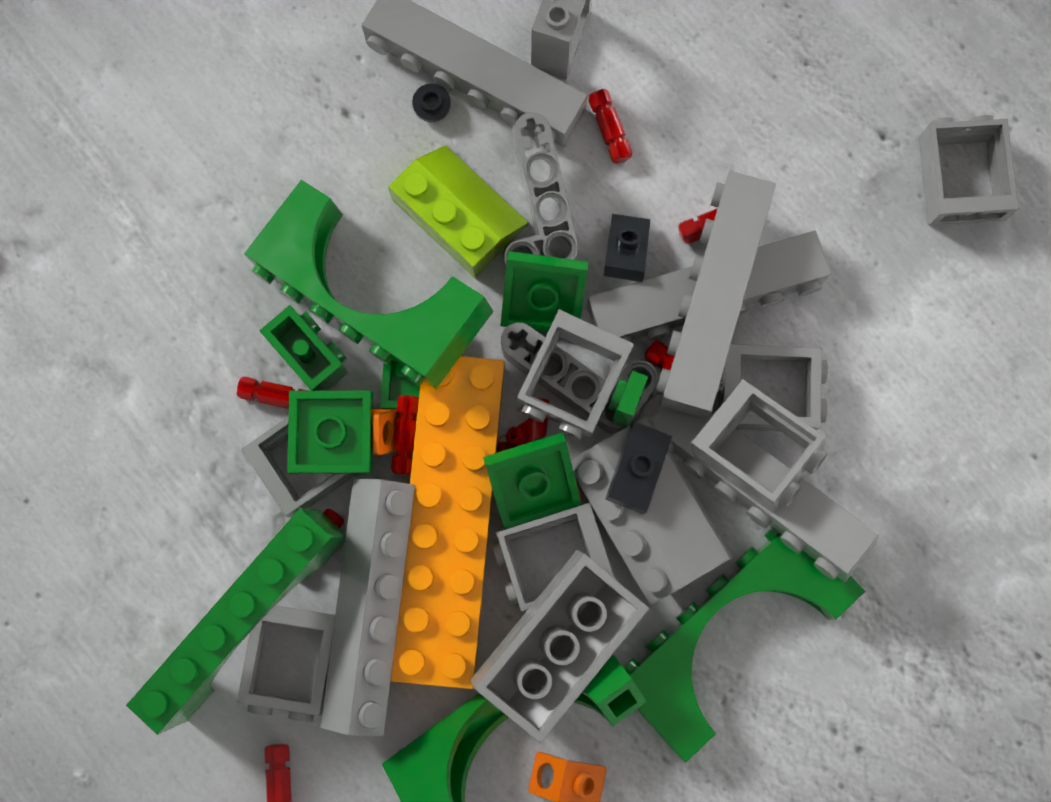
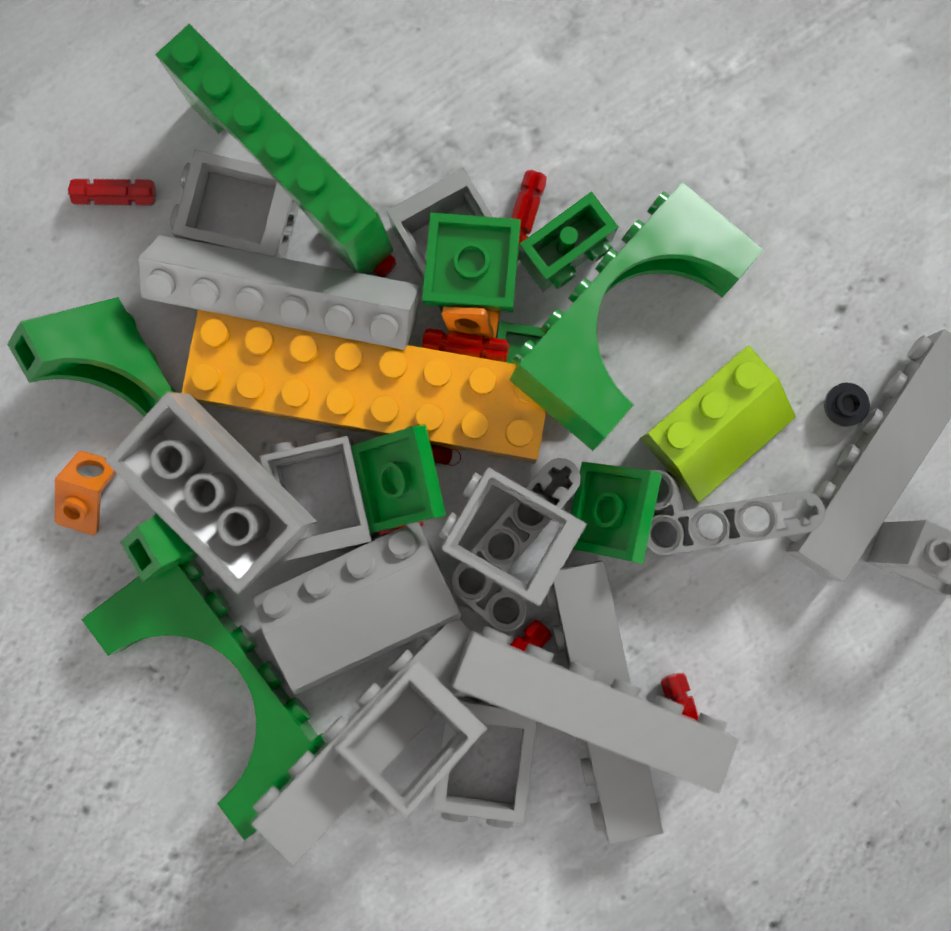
camera: 95 degrees right, 5 degrees up
(527, 431) = (456, 478): red arm -> none
(610, 126) = (806, 606): red axle -> none
(627, 248) = (659, 611): black plate -> none
(627, 398) = (477, 592): green plate -> none
(638, 467) = (400, 598): black plate -> none

